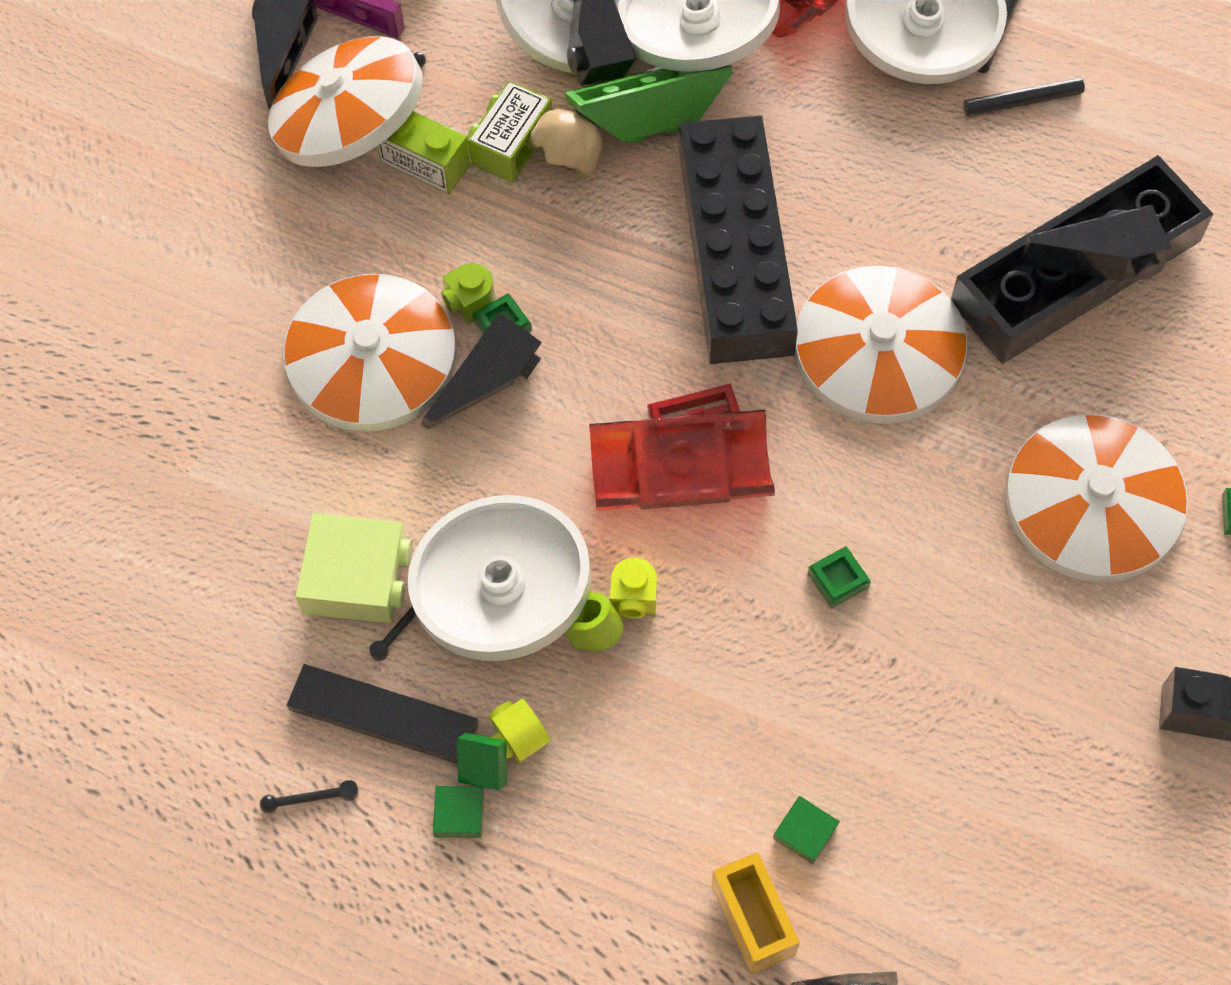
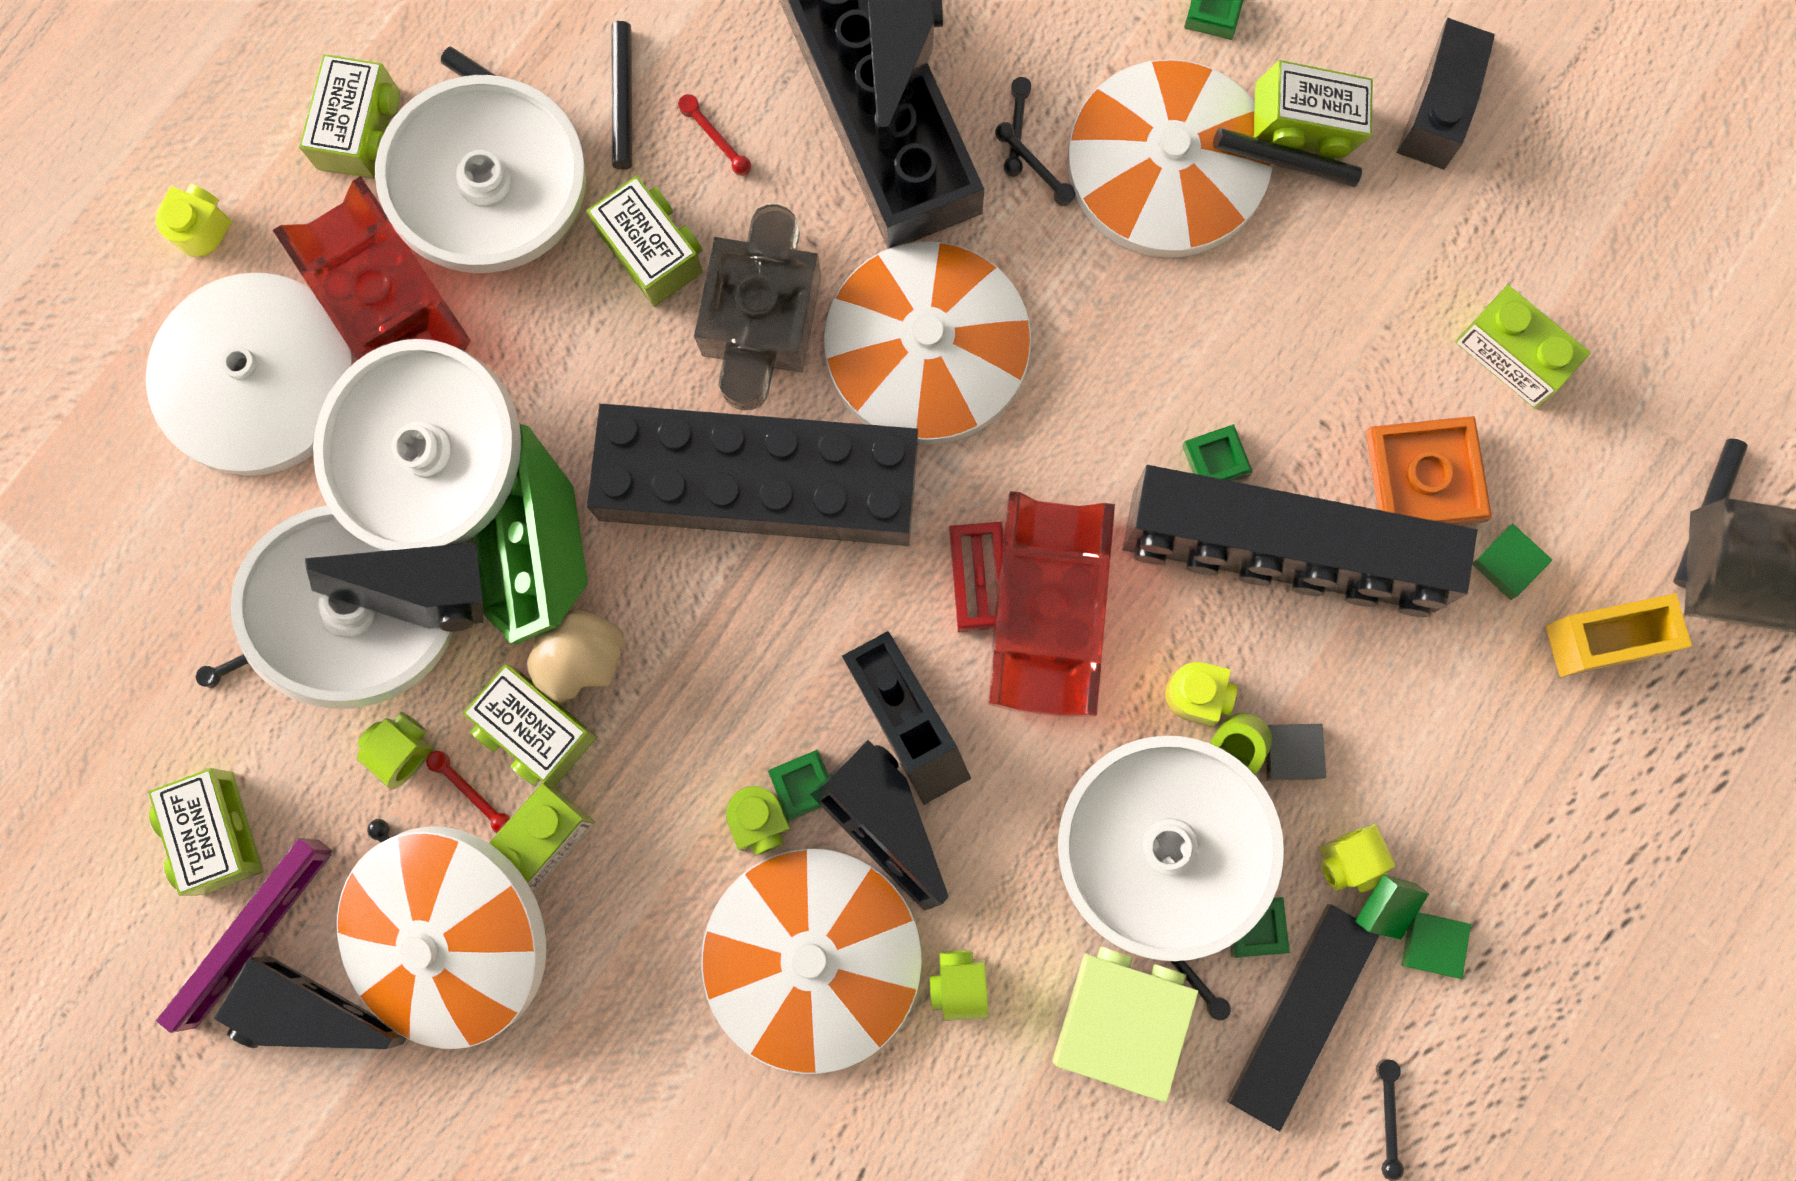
camera: 75 degrees left, 15 degrees up
(365, 452) = (960, 986): none -> lime plate
(448, 671) = (1267, 936): none -> green tile
(474, 87) = (440, 763): none -> red hinge
(476, 54) = (394, 749): none -> lime plate
(564, 377) = (907, 718): none -> black slope
(600, 675) = (1296, 752): none -> dark grey tile
(772, 630) = (1298, 541): none -> black brick
(866, 745) = (1430, 470): none -> orange plate
(873, 193) = (758, 306): none -> clear smoke brick
(906, 131) = (646, 240): none -> brick
(1002, 802) = (1522, 347): none -> lime brick
(1029, 145) = (689, 107): none -> red hinge
(1075, 365) = (1064, 192): none -> black hinge
(1121, 376) = (1020, 90): none -> black hinge
(1121, 583) = (1287, 157): none -> black bar
(1169, 592) = (1313, 109): none -> brick

